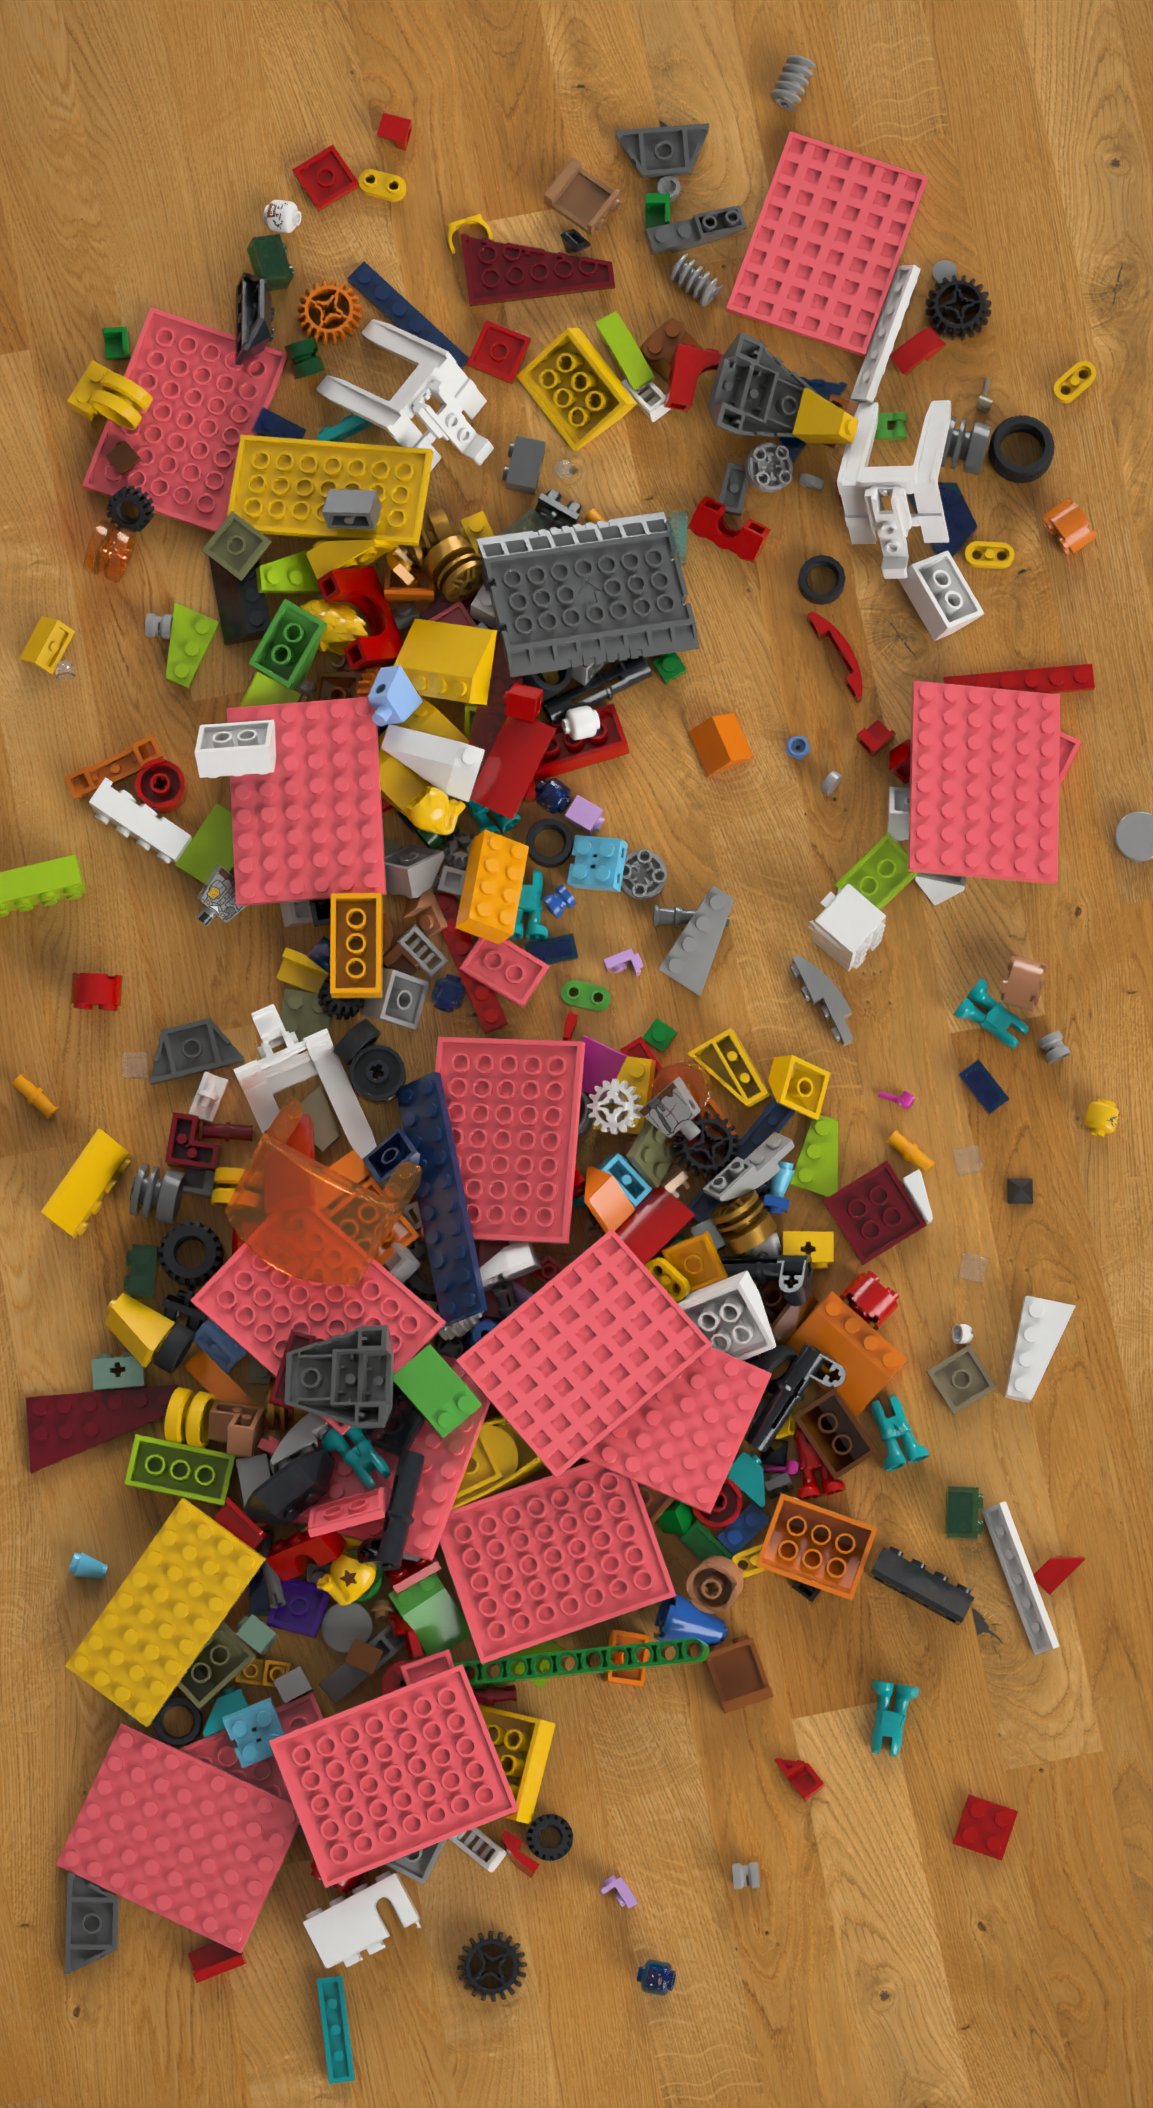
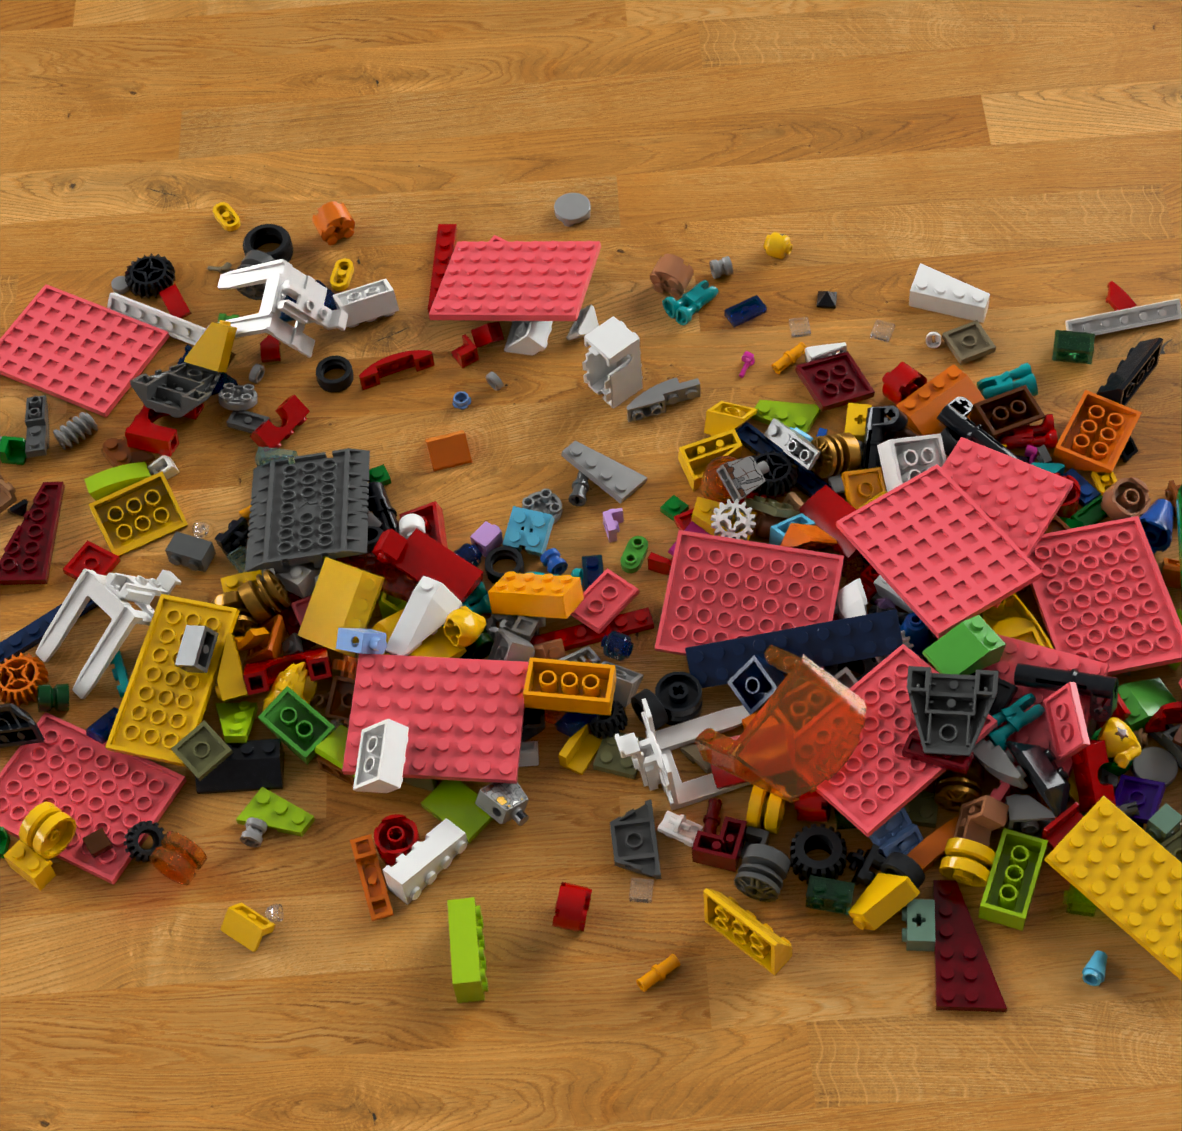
camera: 80 degrees left, 25 degrees down
(880, 872) = (568, 353): lime tile -> none

